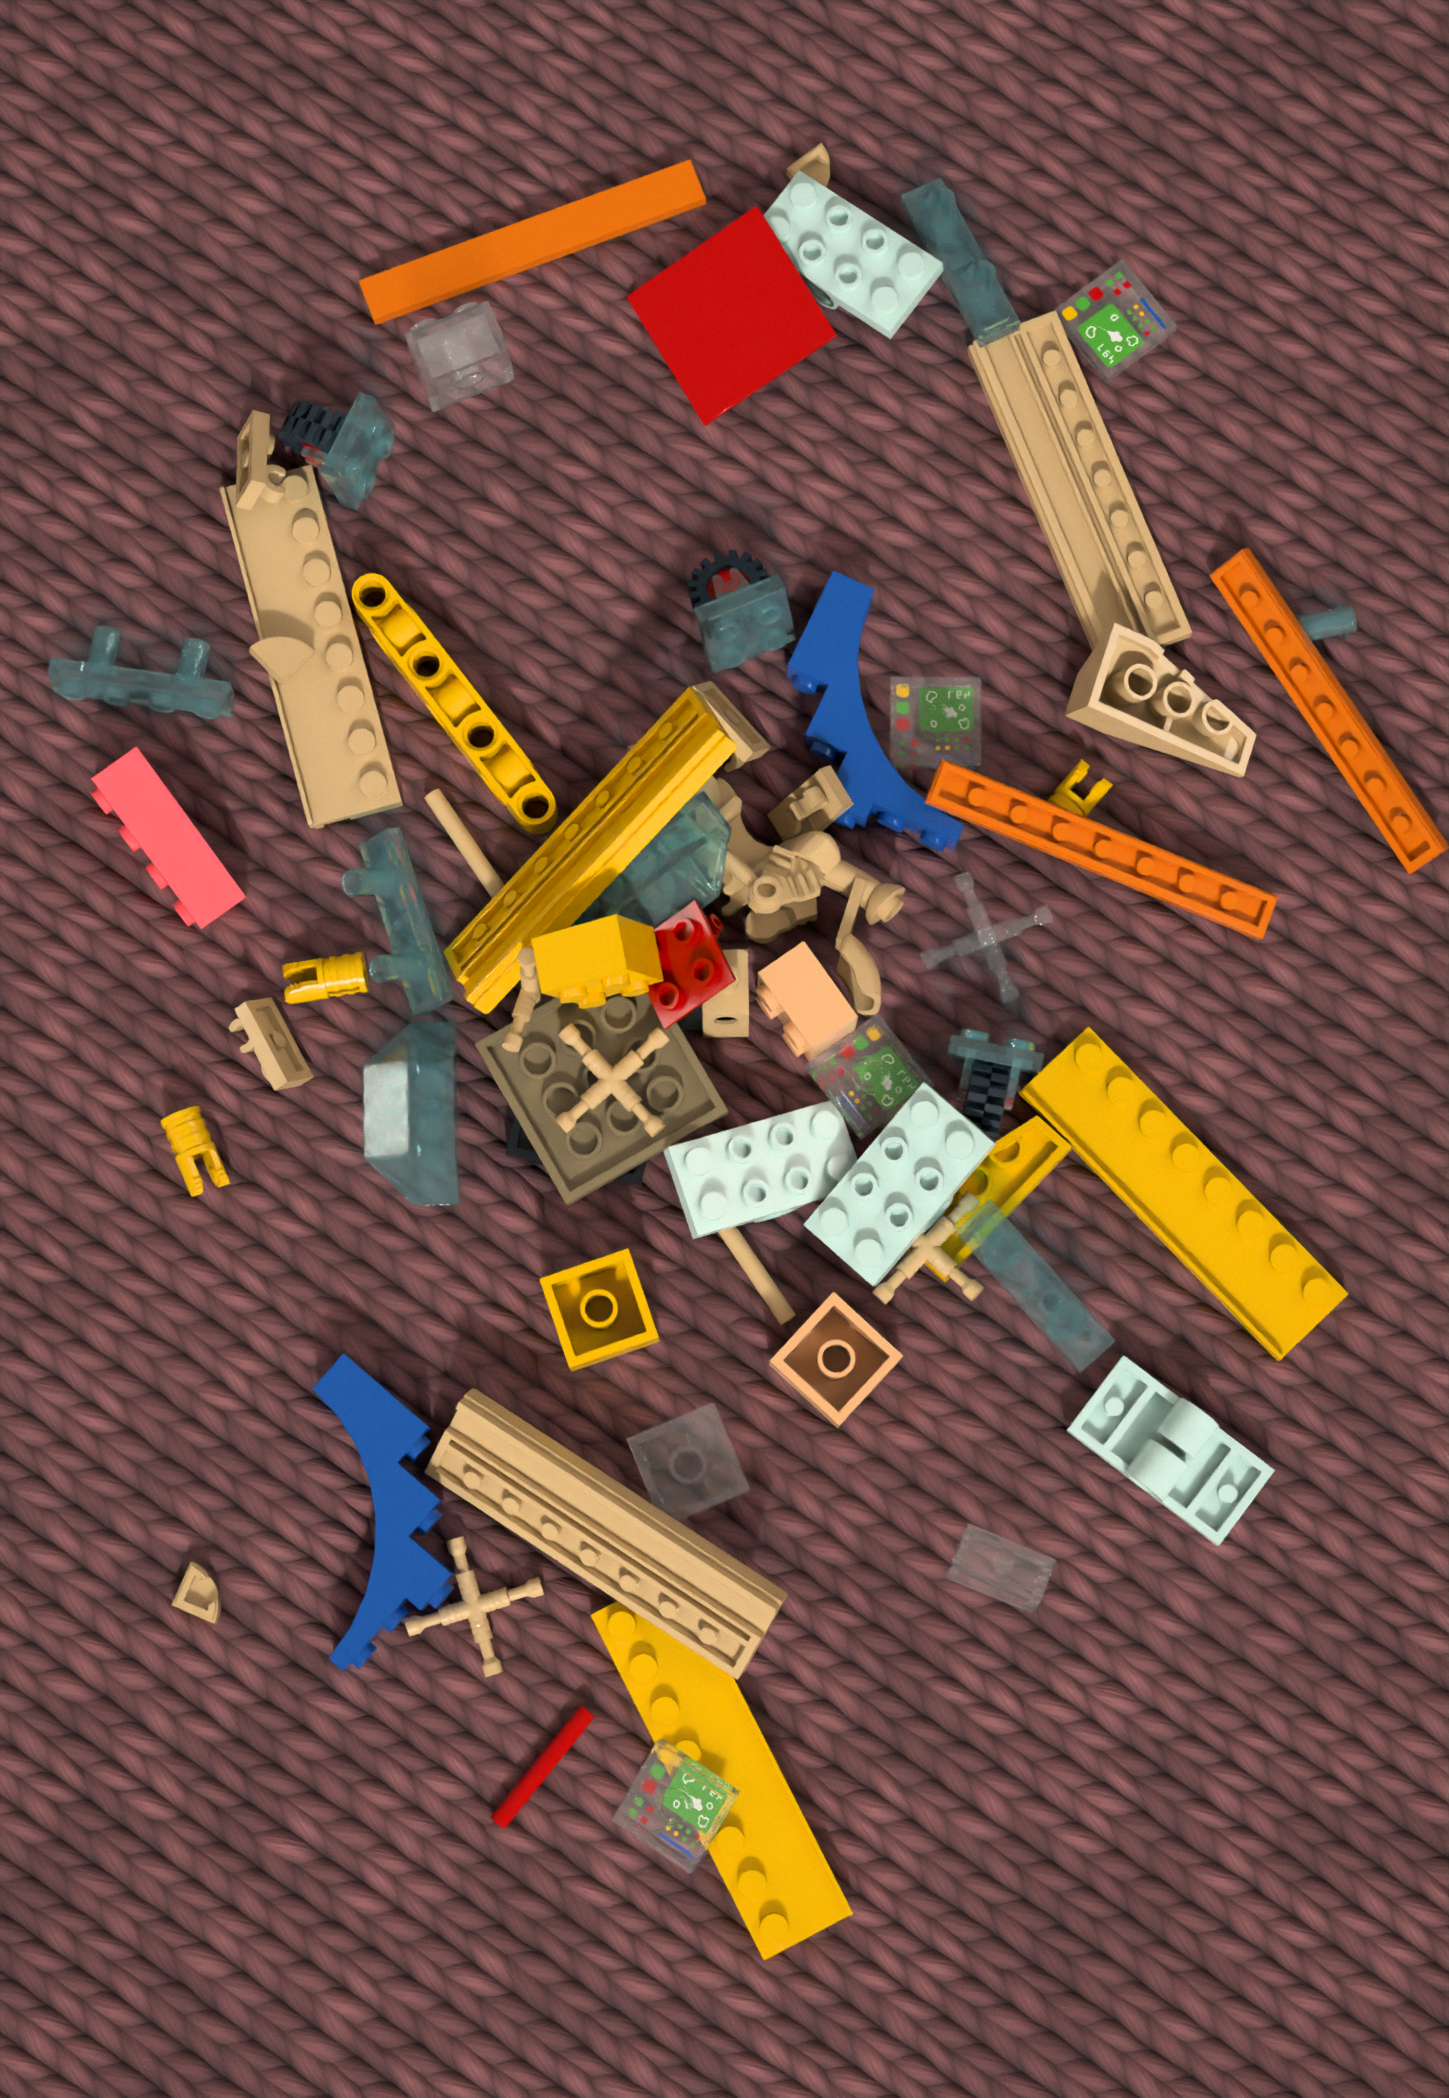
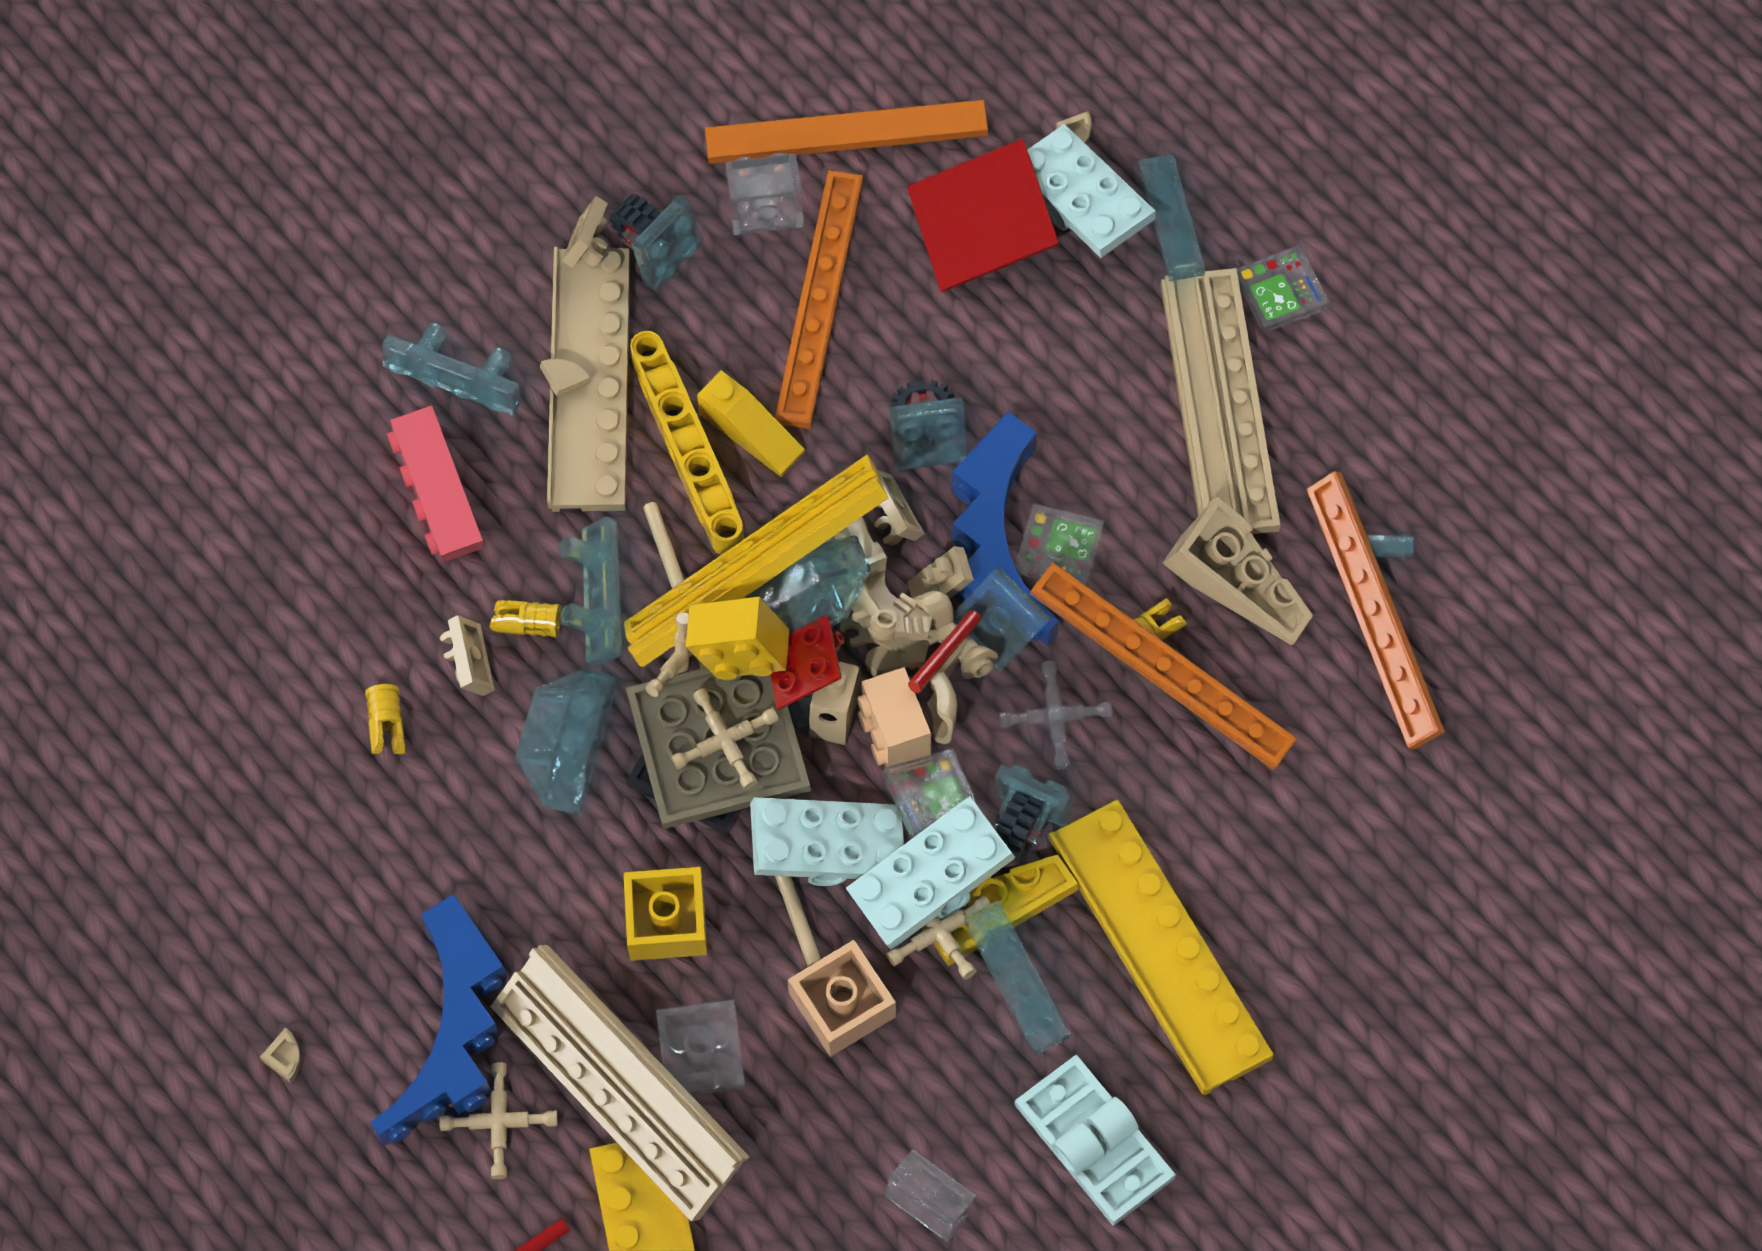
camera: 15 degrees right, 15 degrees down
(522, 660) = (748, 423): none -> yellow slope
(560, 472) = (819, 299): none -> orange tile
(845, 907) = (944, 651): none -> red bar
(895, 839) = (1007, 616): none -> clear light blue plate

